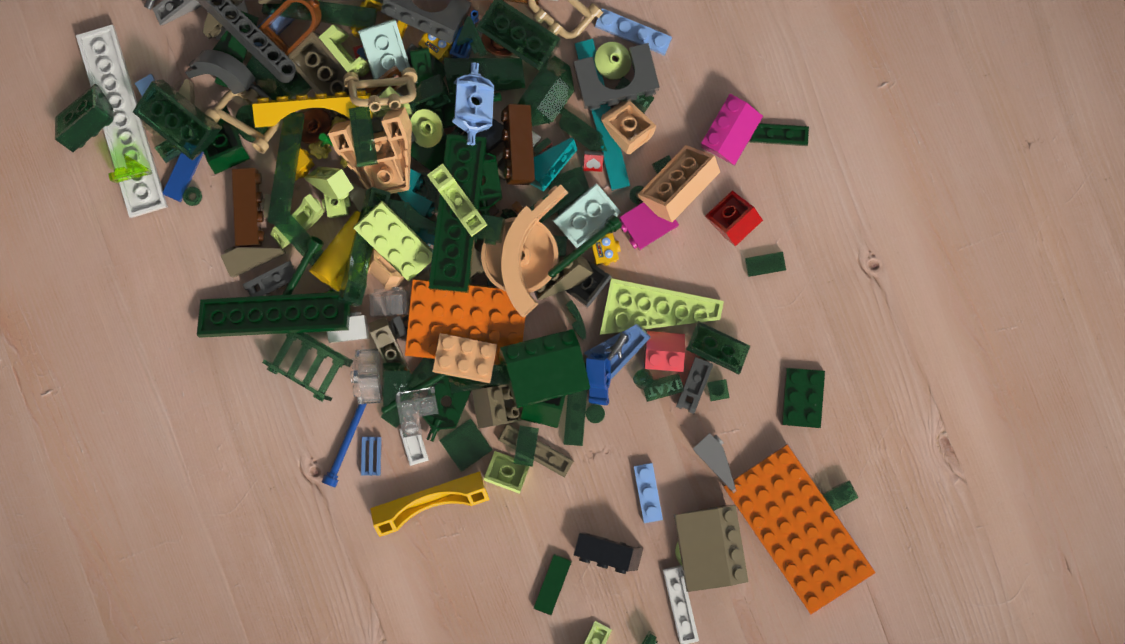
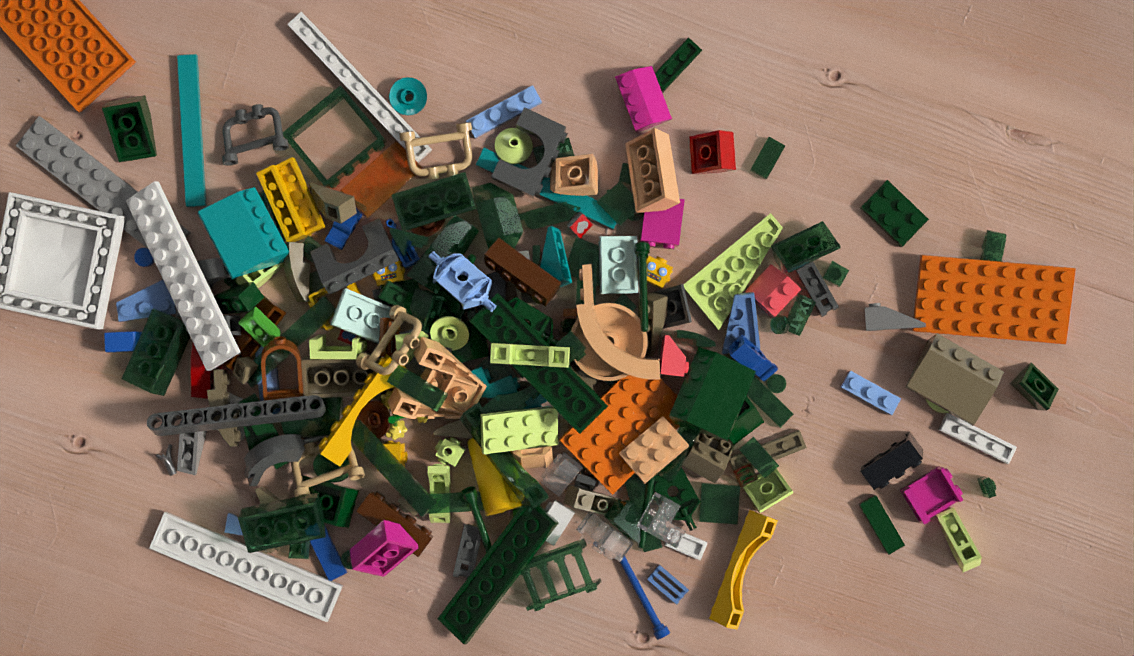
camera: 50 degrees left, 0 degrees up
(83, 119) = (220, 595): clear green slope -> none
(133, 170) = (294, 588): clear neon green slope -> none
(218, 212) = (382, 549): none -> dark pink slope
(245, 259) = (433, 560): dark tan slope -> none
(330, 181) = (430, 442): yellowish green slope -> none
(504, 447) = (745, 475): none -> tile
(546, 316) = (672, 359): none -> coral slope
(607, 604) = (931, 494): none -> dark pink panel
(617, 347) = (740, 324): flat silver bar -> none
(634, 176) = (618, 203): none -> clear green piece
(757, 617) = (1035, 387): none -> dark green slope

